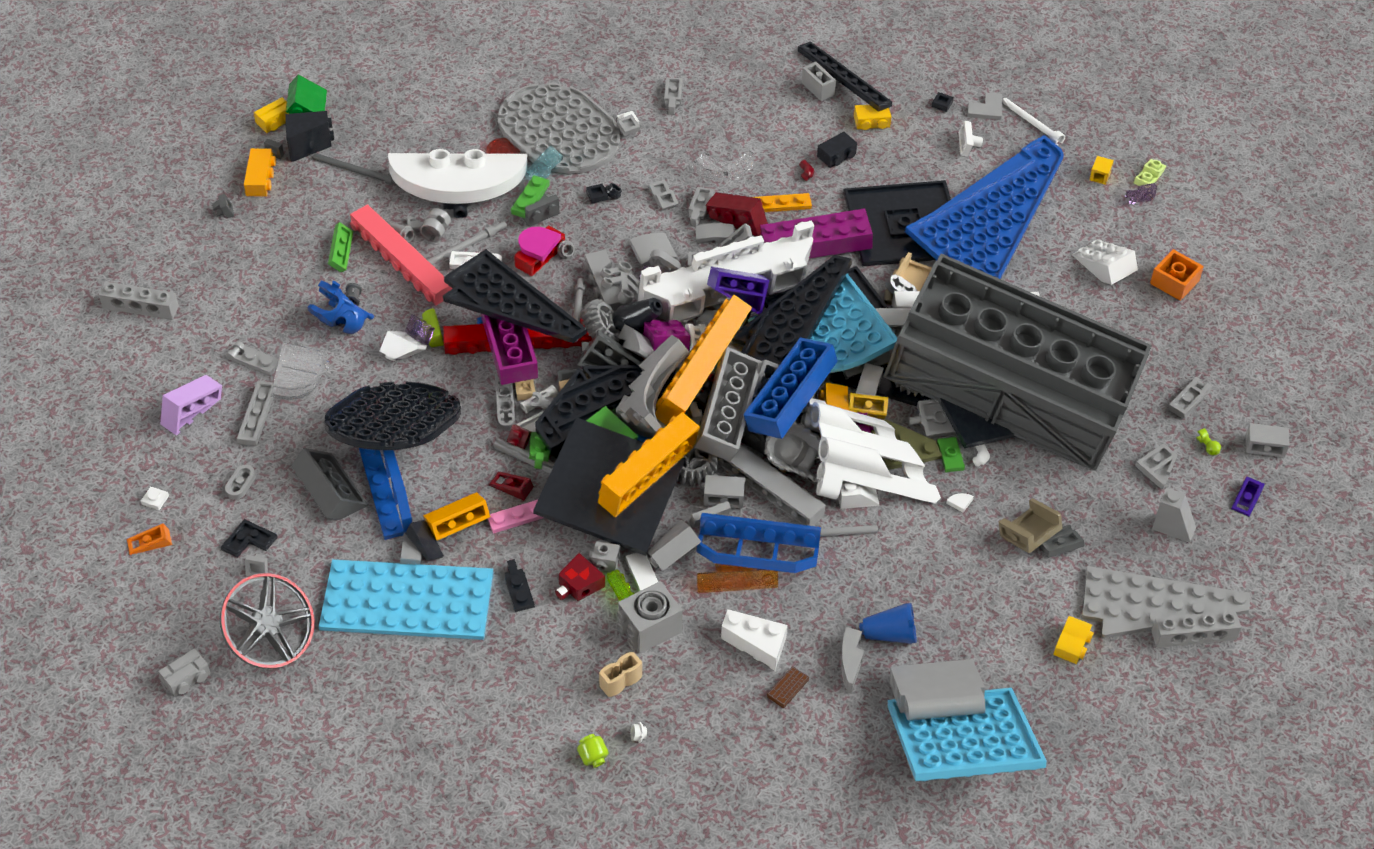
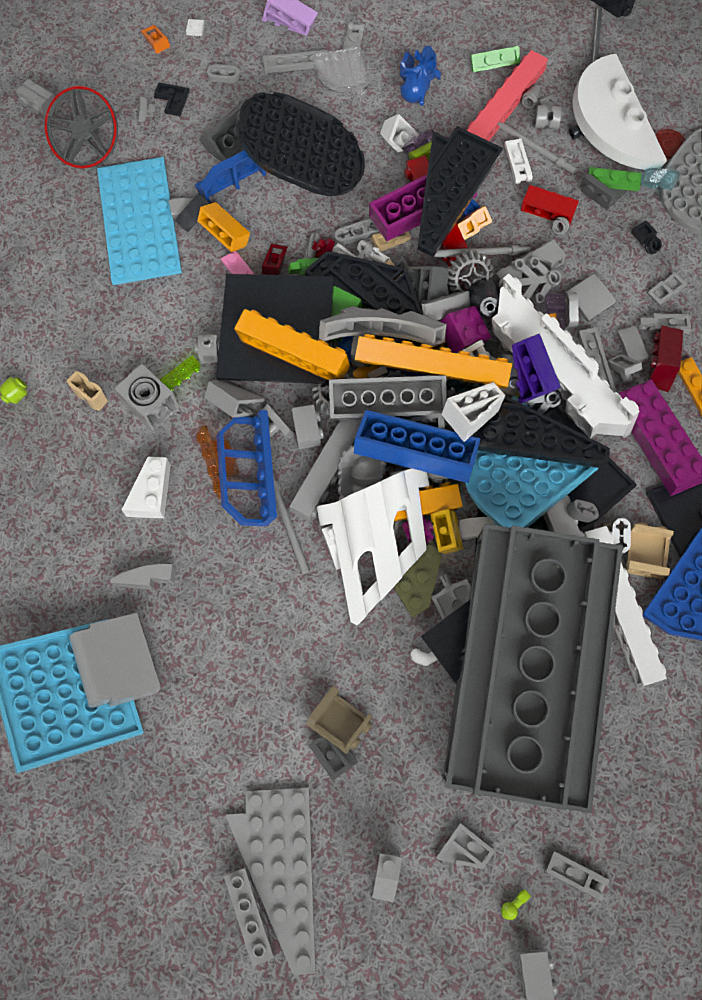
camera: 80 degrees right, 20 degrees up
(355, 295) = (444, 84): dark grey bush -> none
(518, 587) = (168, 294): black hinge -> none
(538, 242) = (551, 197): dark pink tile -> none
(579, 579) = (182, 335): dark red torso -> none
(638, 732) = (39, 420): white plate -> none
(641, 570) = (195, 390): white tile -> none
(772, 335) = (472, 409): none -> white wedge
(788, 687) = (109, 530): reddish brown tile -> none
(877, 301) = (582, 511): none -> light grey beam
(891, 625) = (186, 607): blue cone -> none
(951, 454) = (416, 626): bright green plate -> none
(960, 501) = (359, 646): white tile -> none
(1072, 640) = (210, 785): yellow brick -> none
(1248, 495) = (453, 960): dark purple slope -> none

